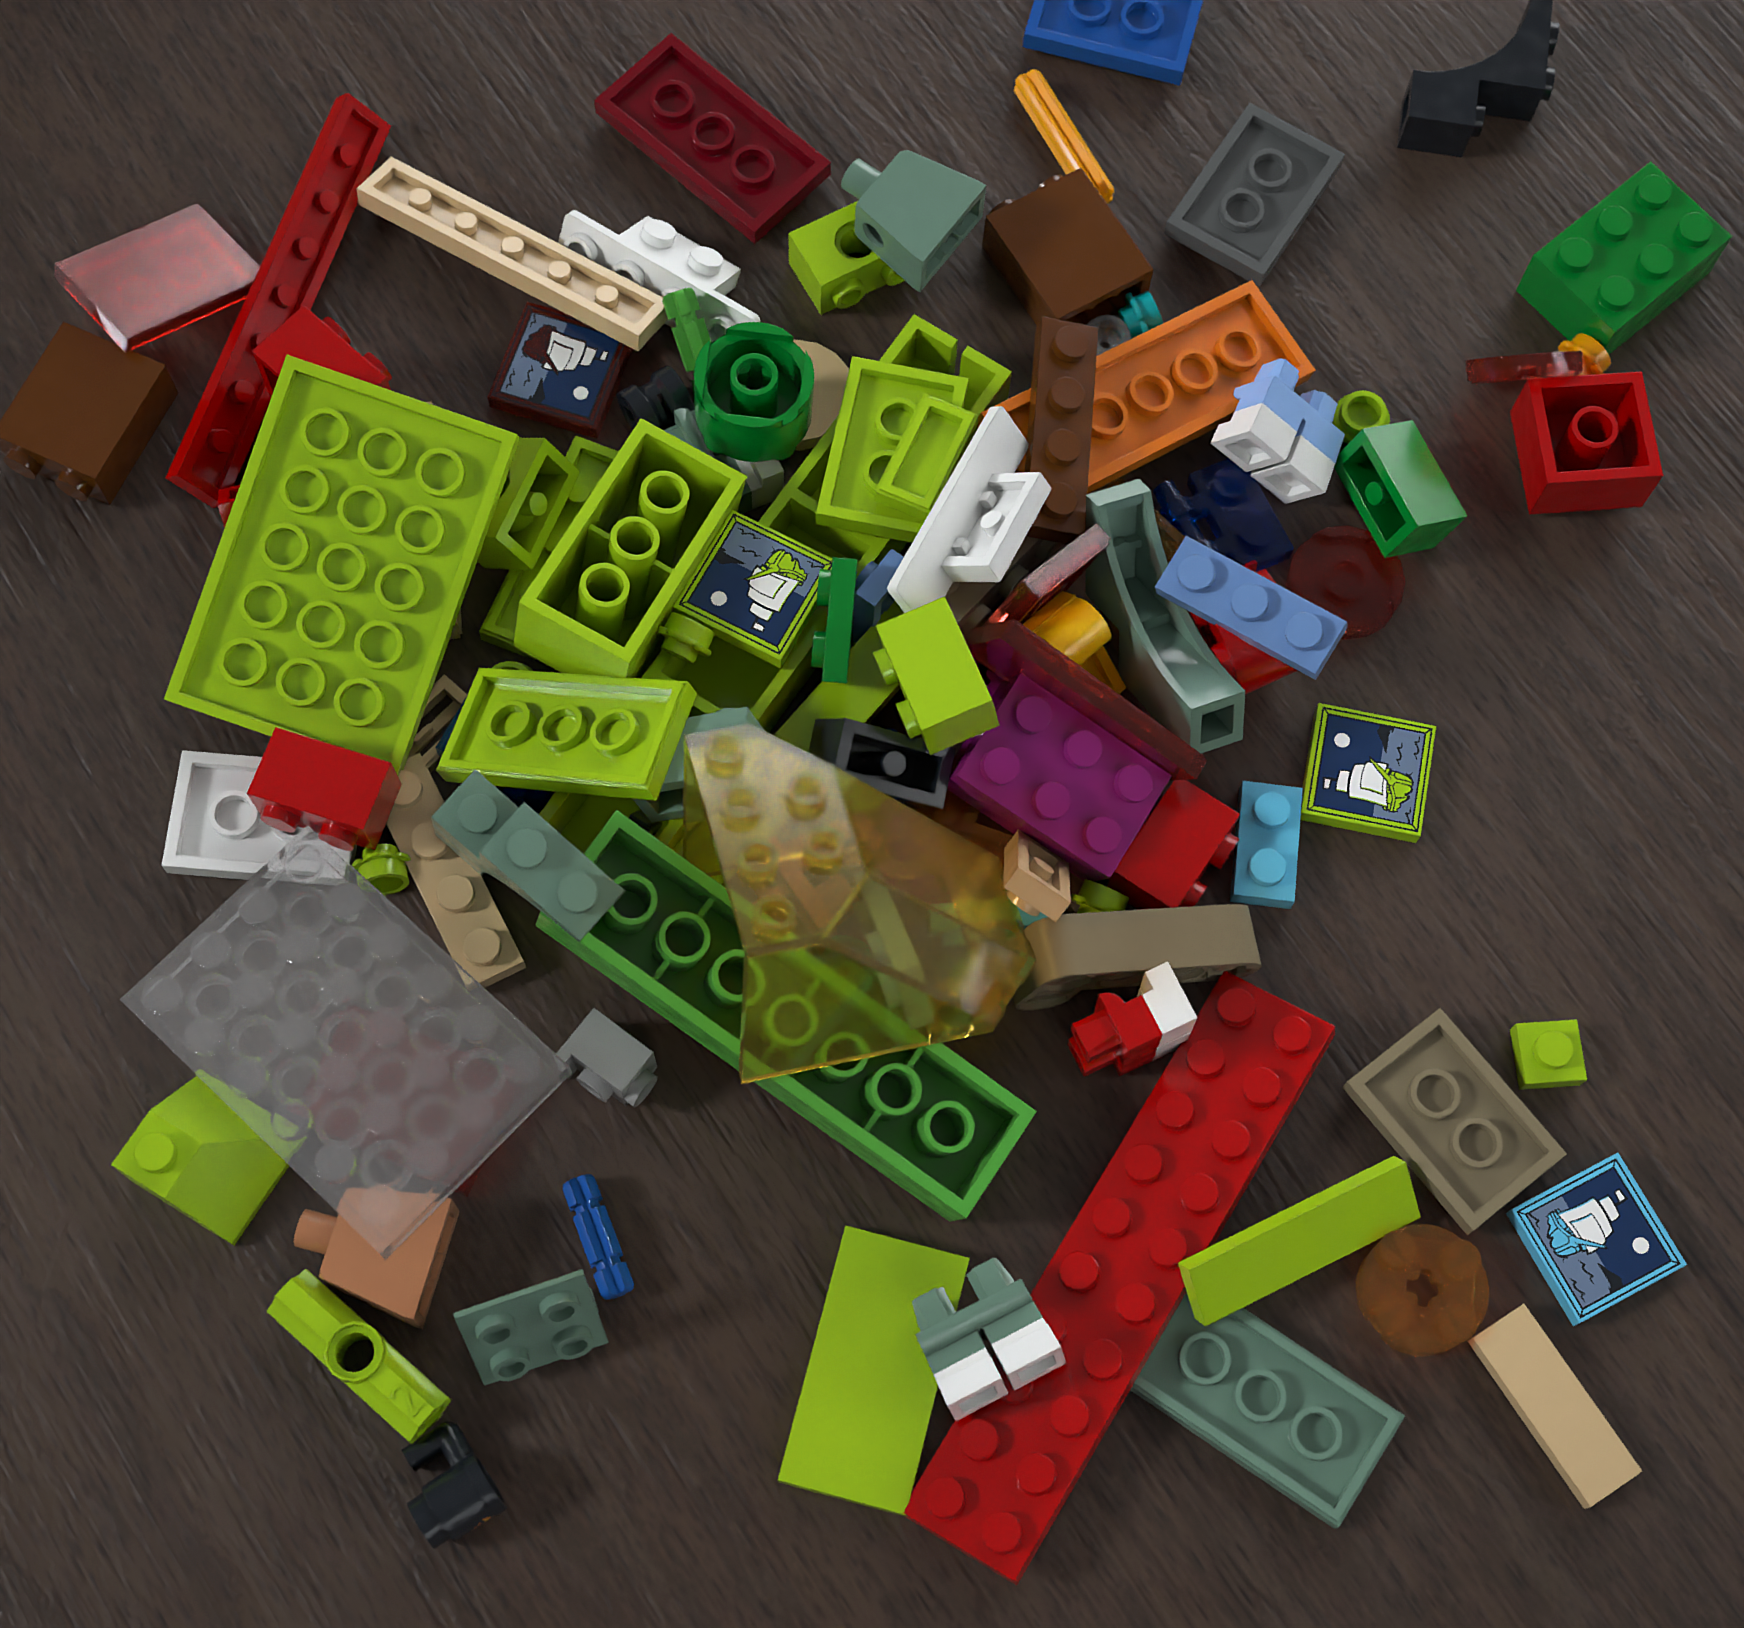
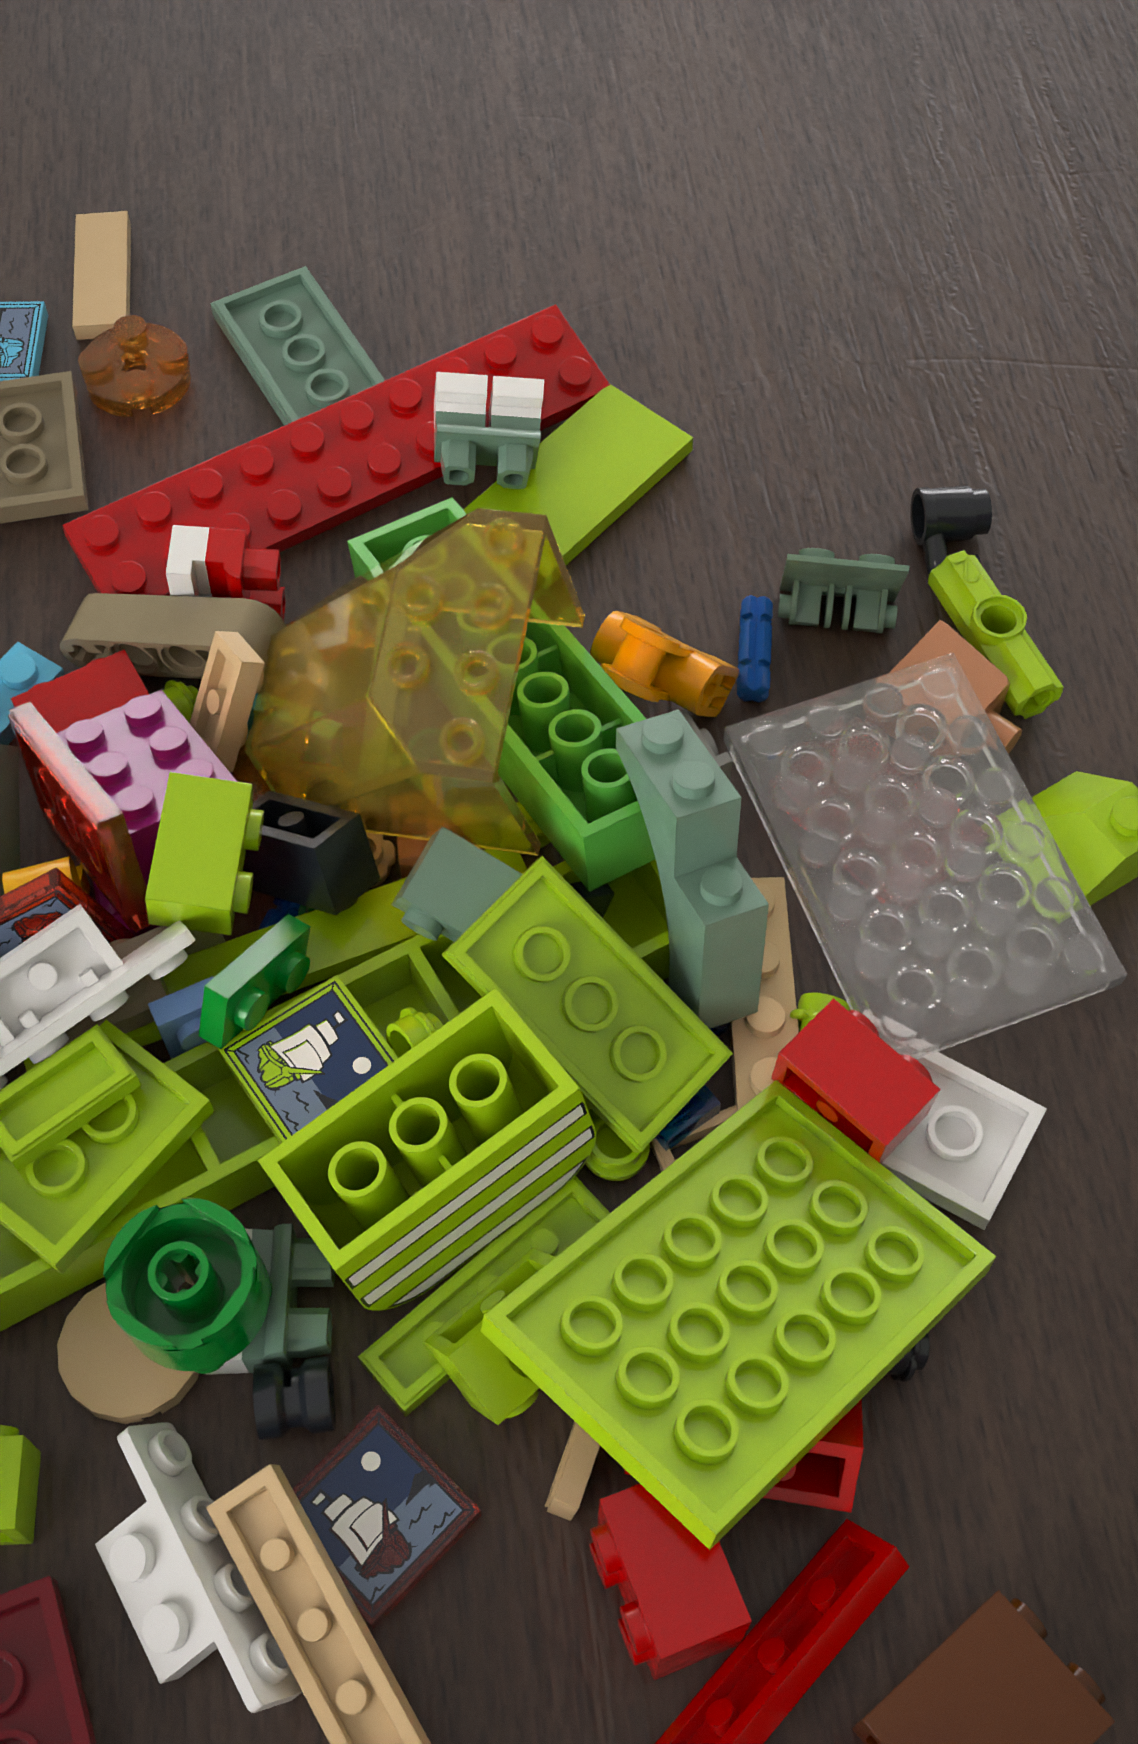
camera: 150 degrees left, 10 degrees down
(668, 1116) = (660, 667): none -> light orange piece
(690, 331) = (209, 1446): bright green axle -> none
(1299, 1240) = (202, 413): lime tile -> none

